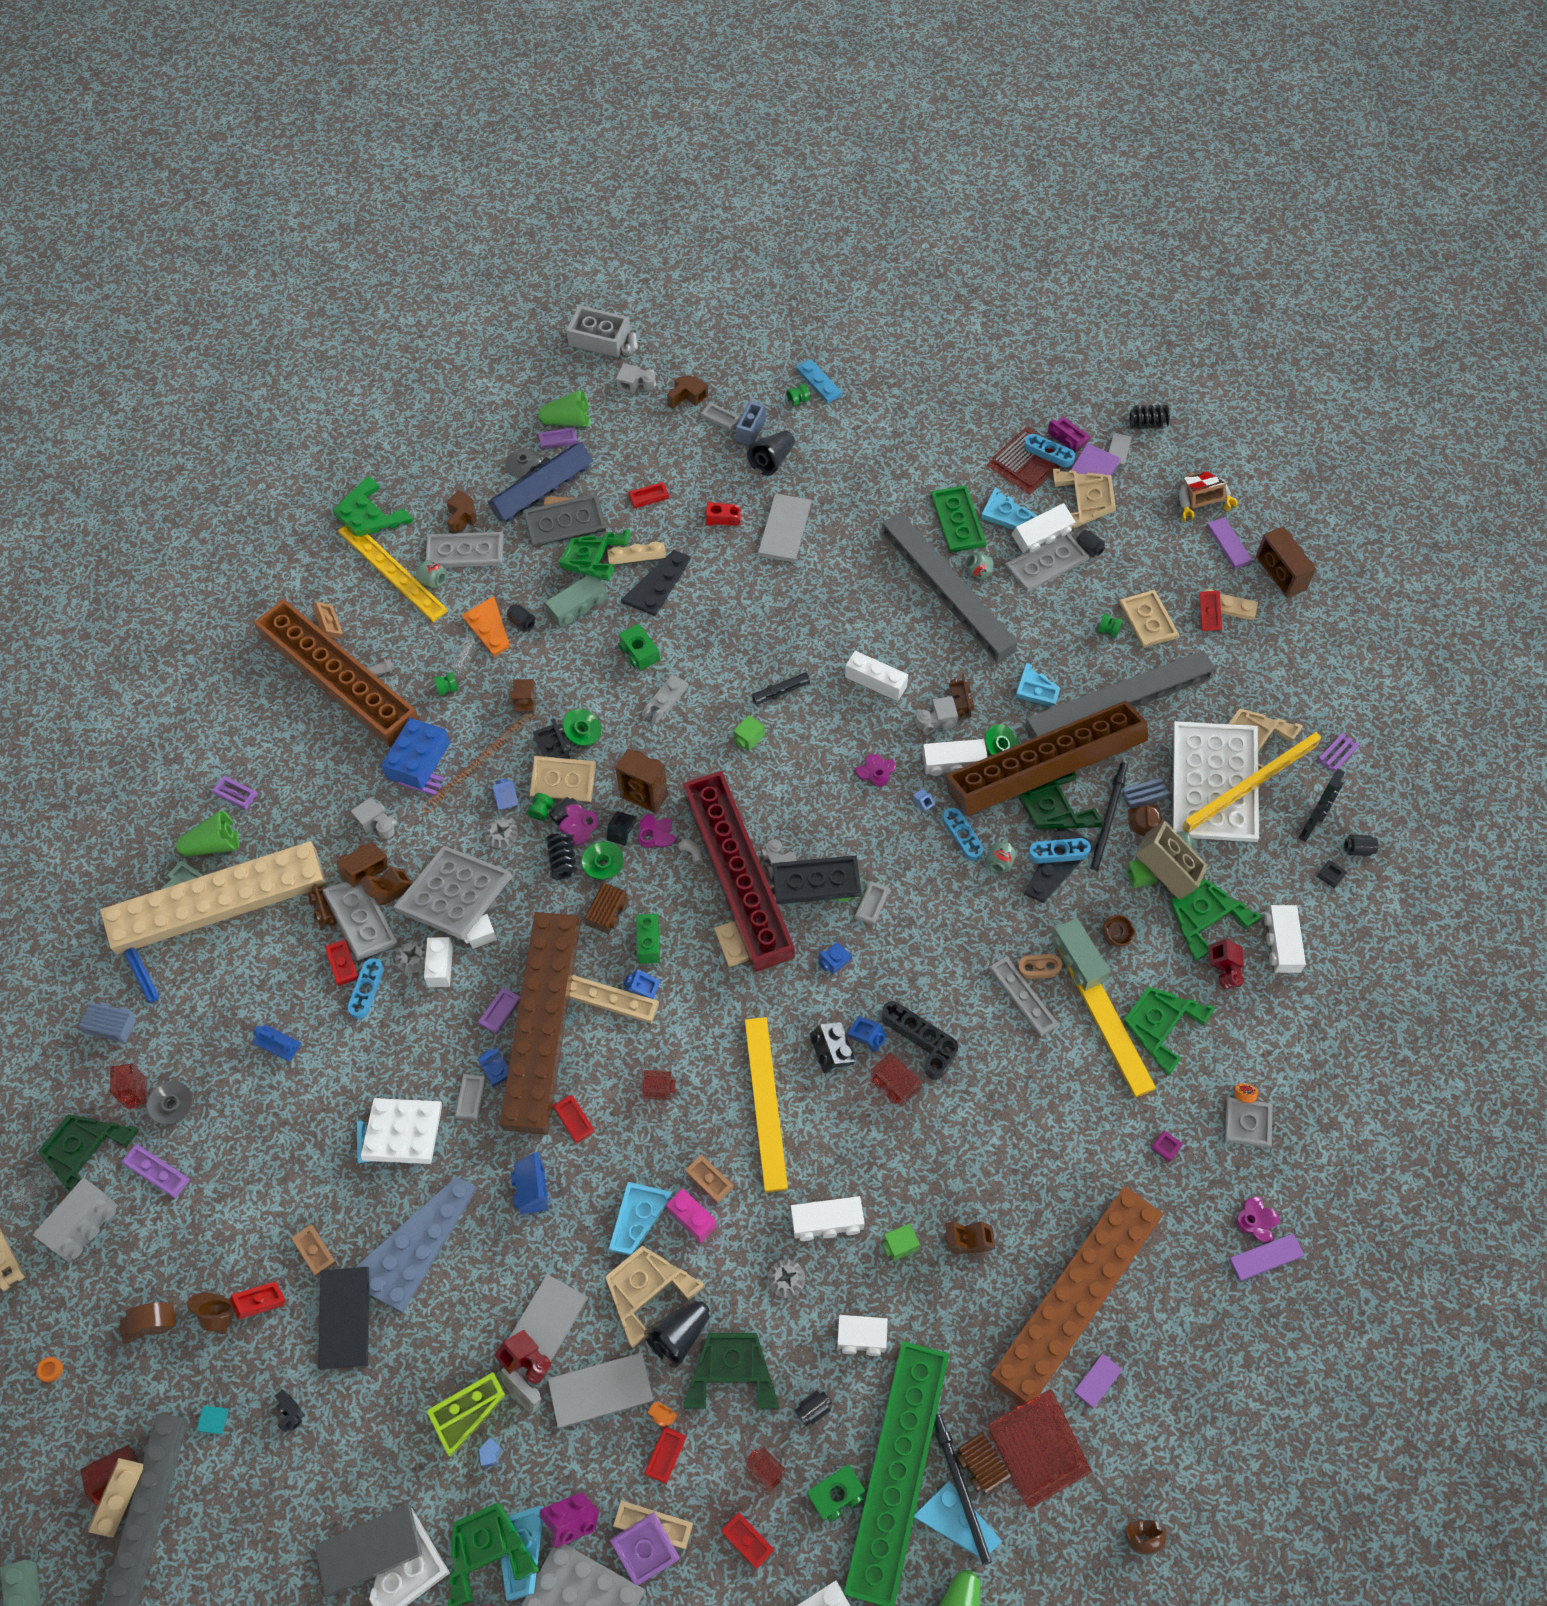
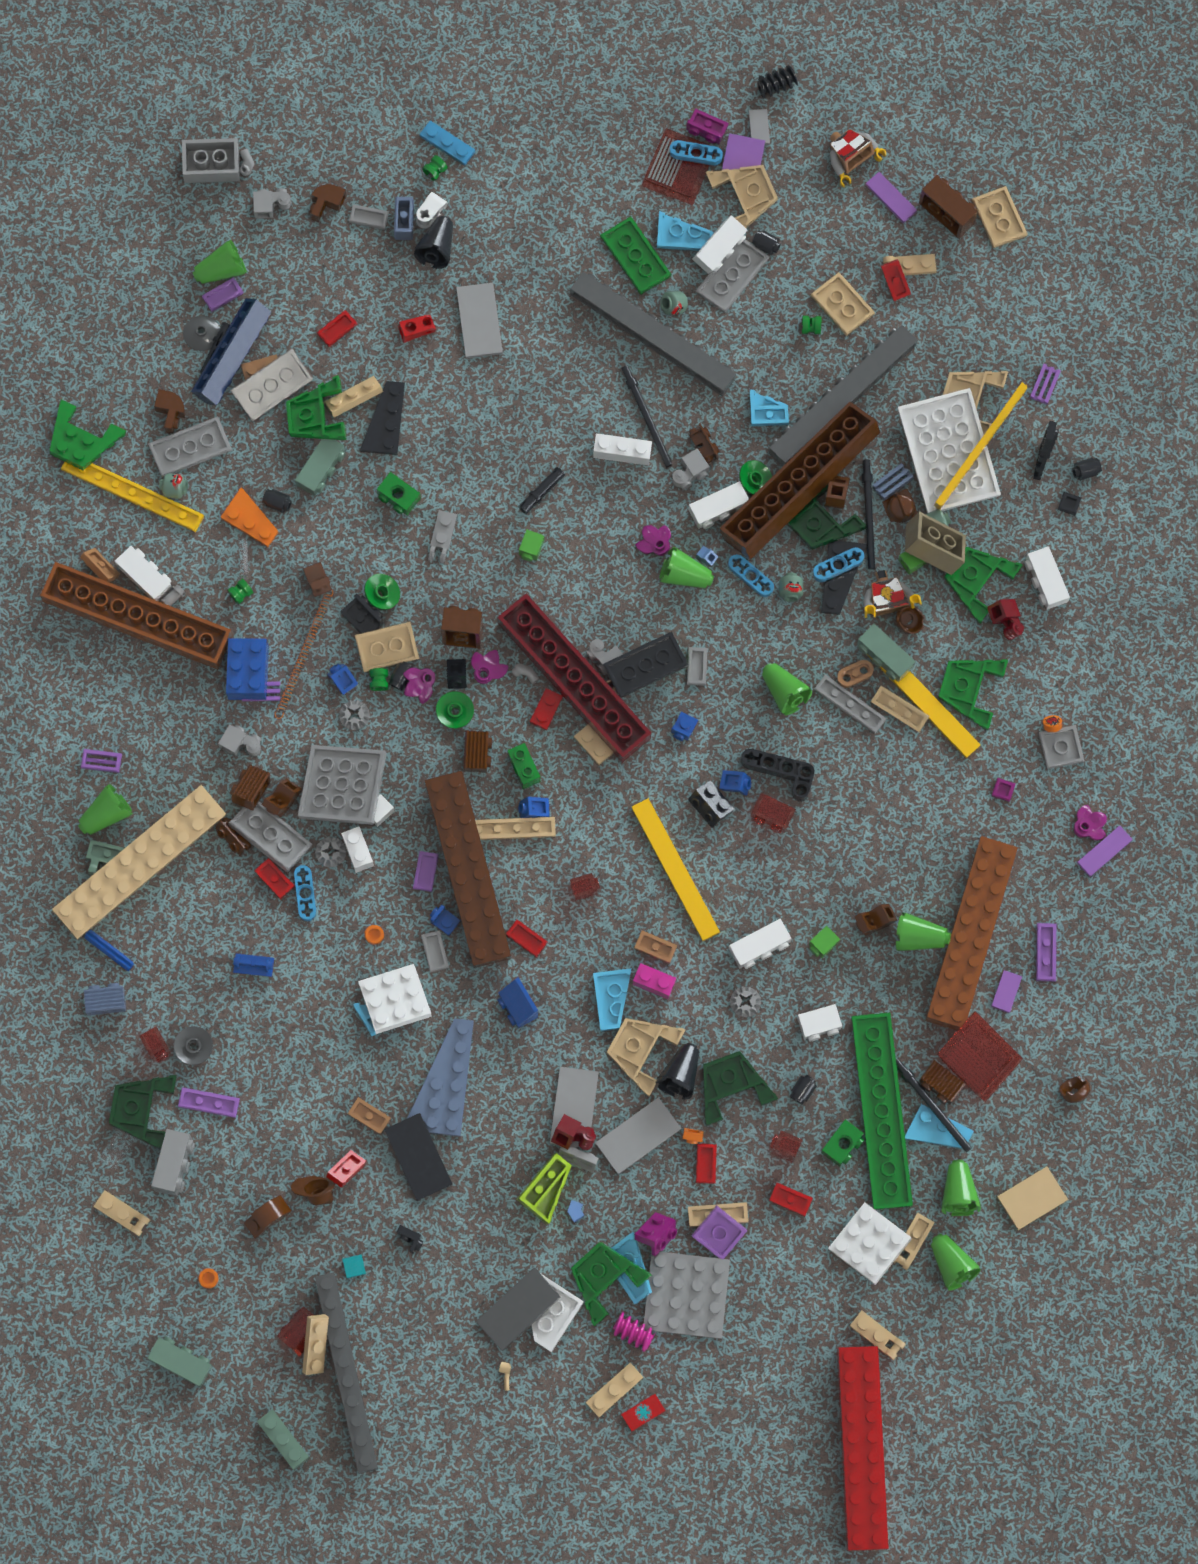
camera: 25 degrees left, 15 degrees up
(363, 638) = (144, 573): none -> white brick
(415, 1056) = (374, 934): none -> orange tile
(561, 856) = (417, 718): black piece -> none
(697, 892) = (546, 709): none -> red plate
(778, 423) = (431, 208): none -> white piece
(895, 805) = (684, 570): none -> bright green cone
(910, 625) = (633, 385): none -> black bar
(958, 956) = (785, 688): none -> bright green cone
(1015, 1272) = (920, 934): none -> bright green cone
(1077, 1018) = (900, 708): none -> tan plate
(1082, 782) = (837, 492): none -> reddish brown brick
(1102, 899) = (888, 596): none -> torso
(1160, 1351) = (1046, 952): none -> medium lavender tile
(1335, 591) = (999, 217): none -> tan tile

